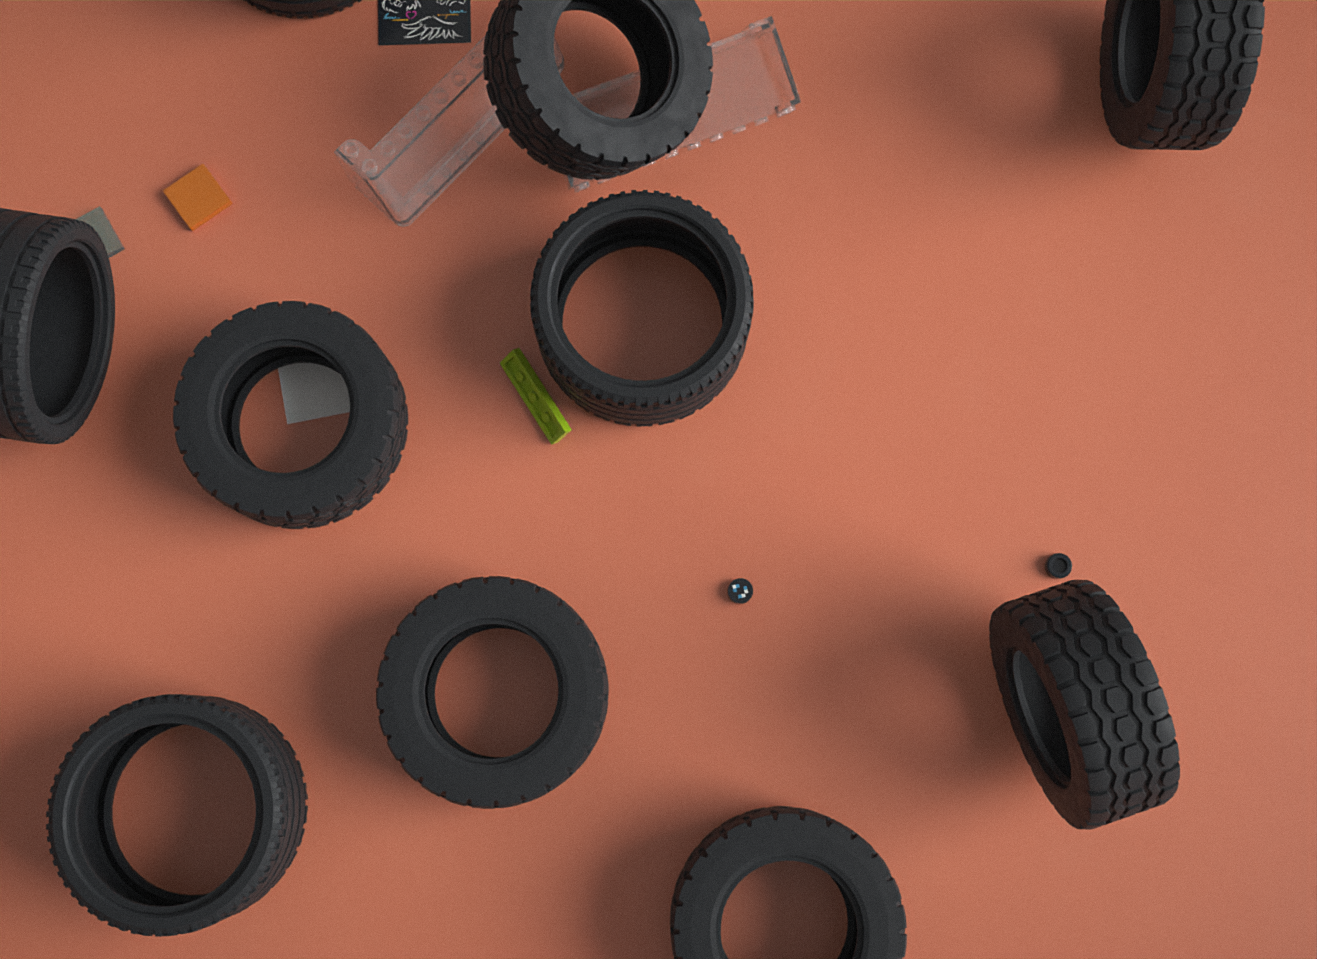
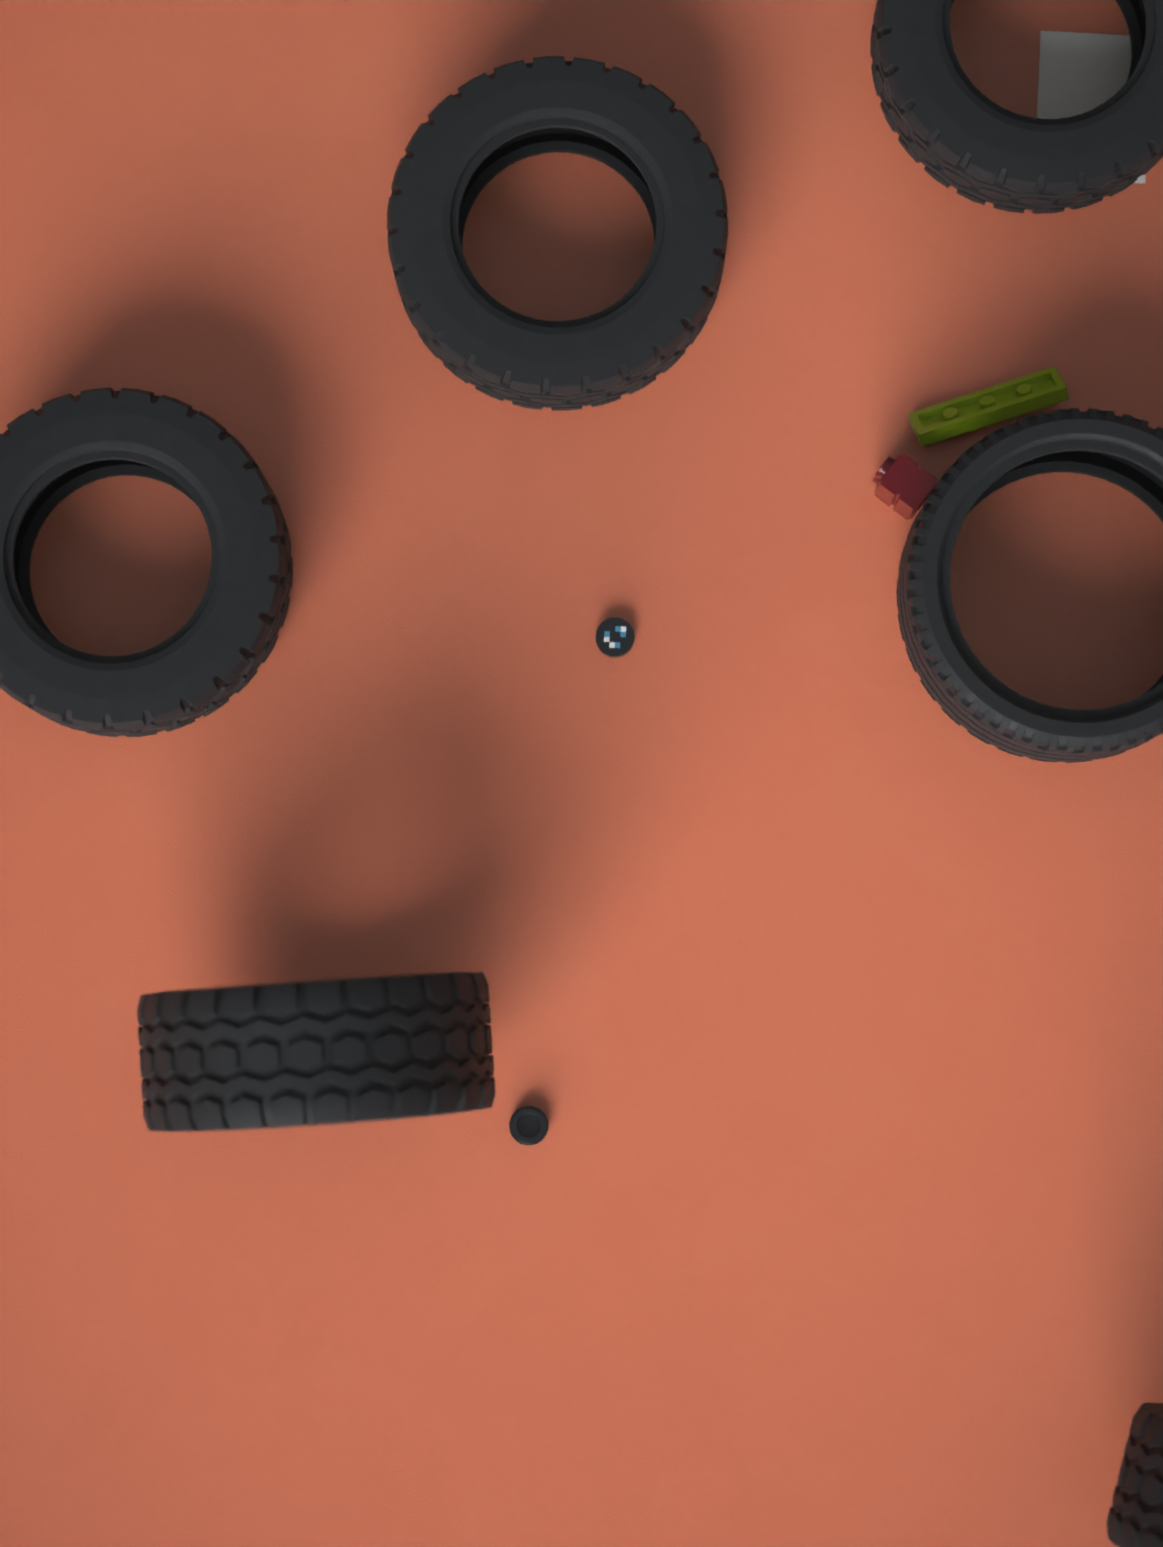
camera: 110 degrees right, 5 degrees up
(600, 432) = (903, 485): none -> dark red brick

